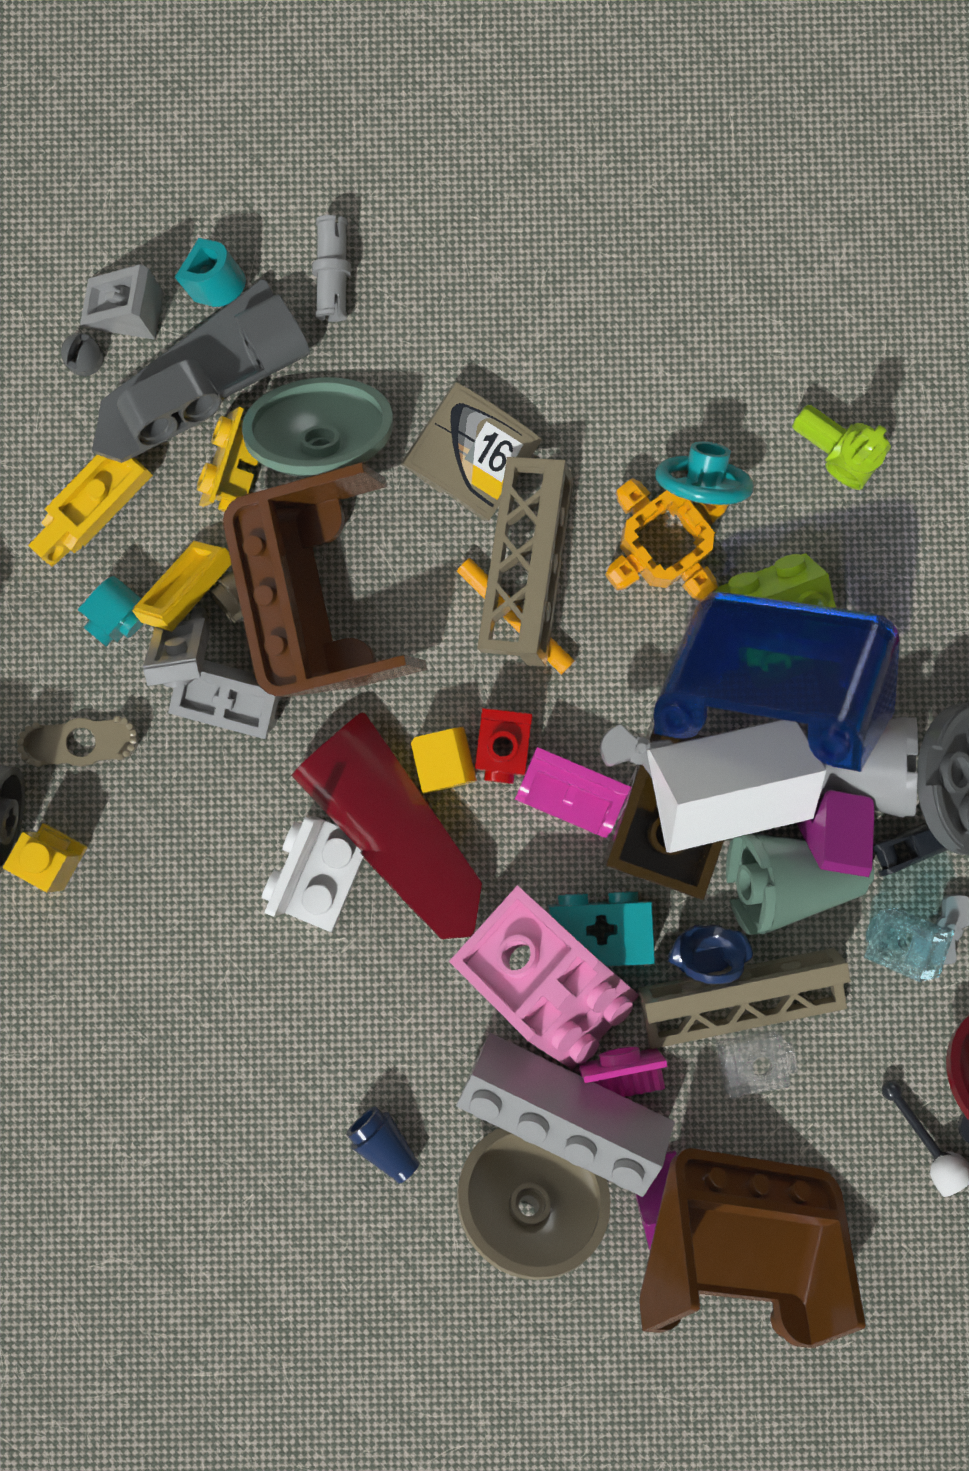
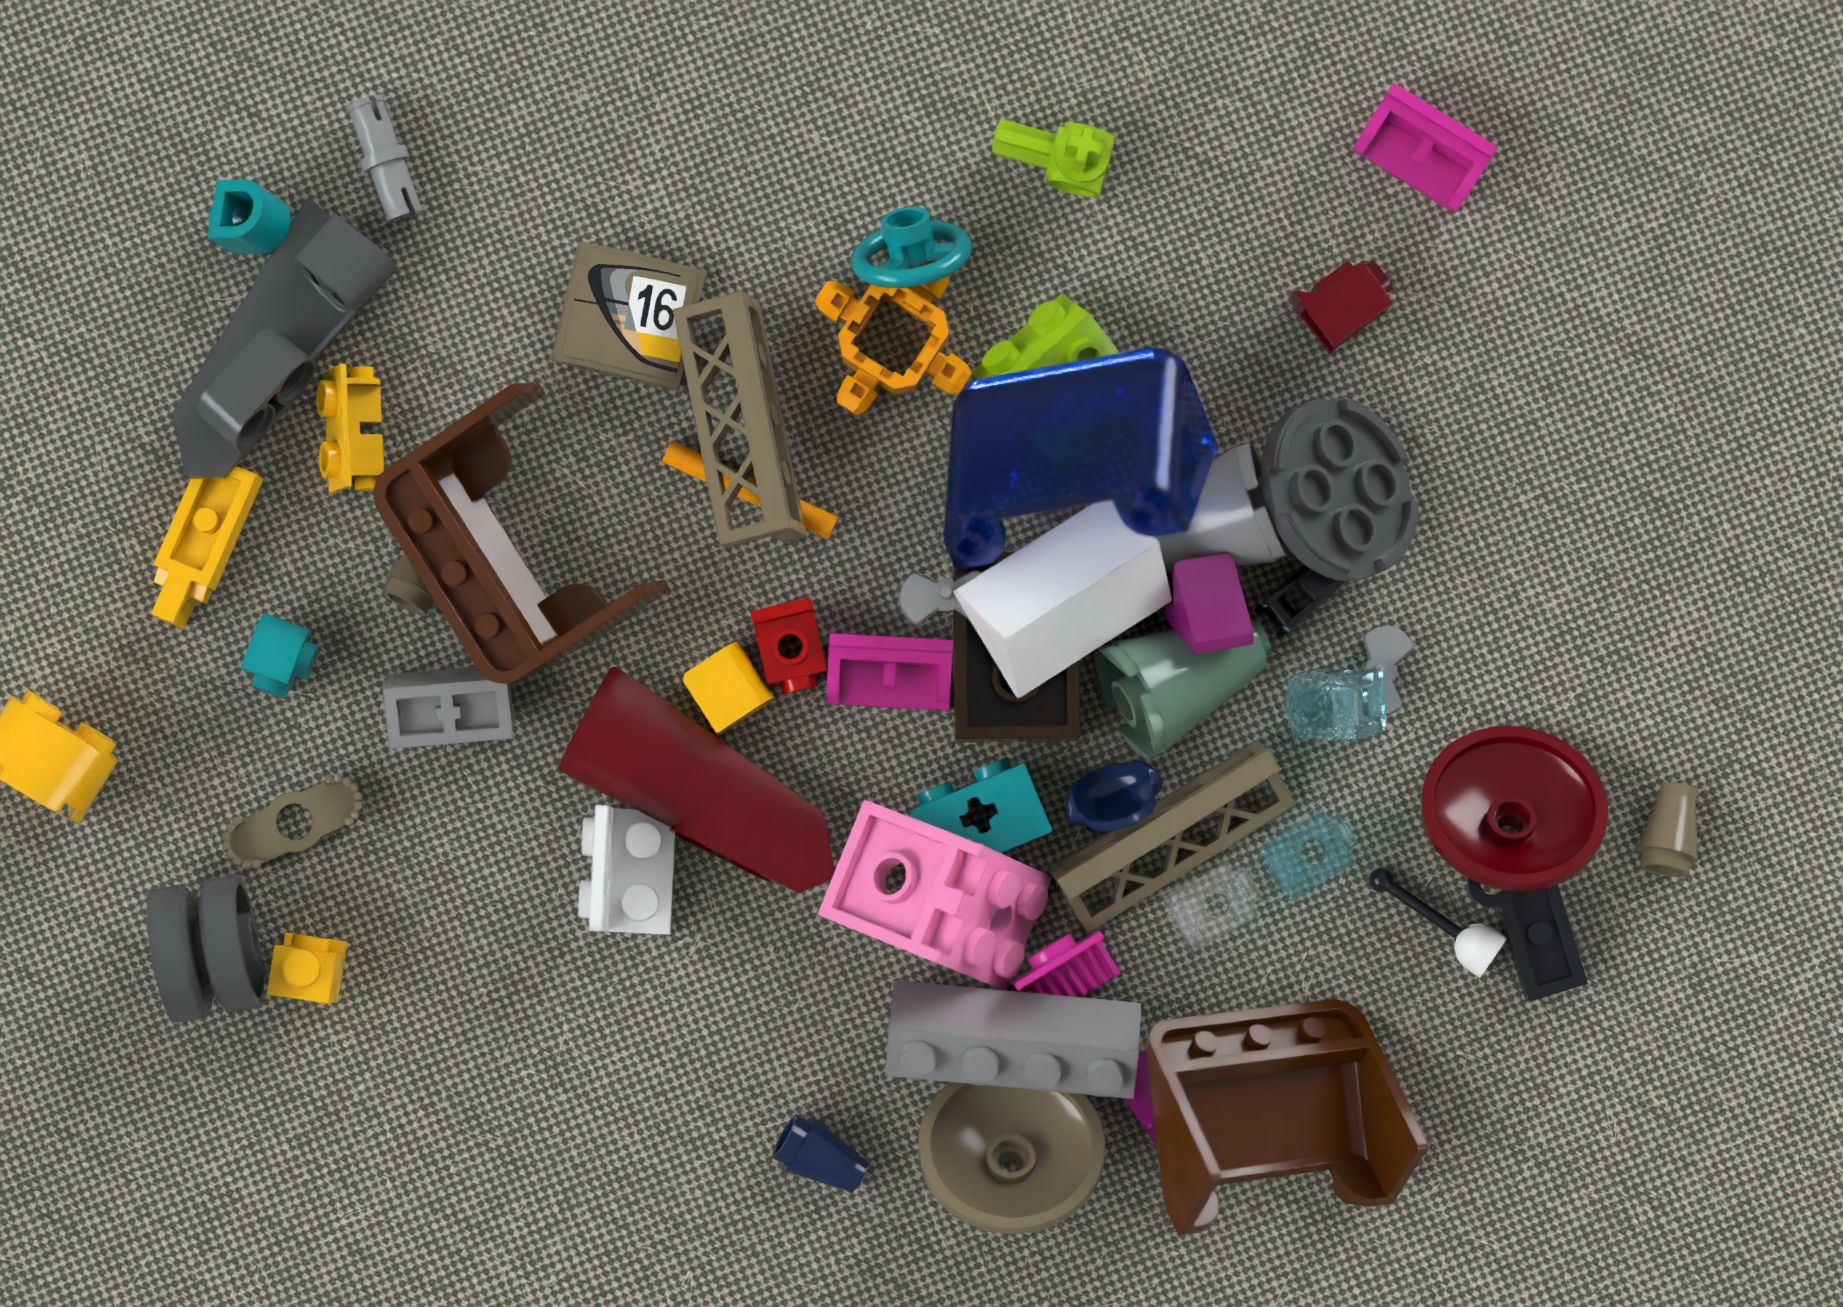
camera: 30 degrees left, 0 degrees up
(89, 357) = (136, 370): dark grey hinge -> none
(123, 302) = (151, 288): light grey slope -> none
(178, 655) = (377, 670): light grey hinge -> none
(182, 585) = (351, 595): yellow tile -> none
(317, 426) = (440, 353): sand green dish -> none
(826, 1046) = (1284, 856): none -> clear light blue brick

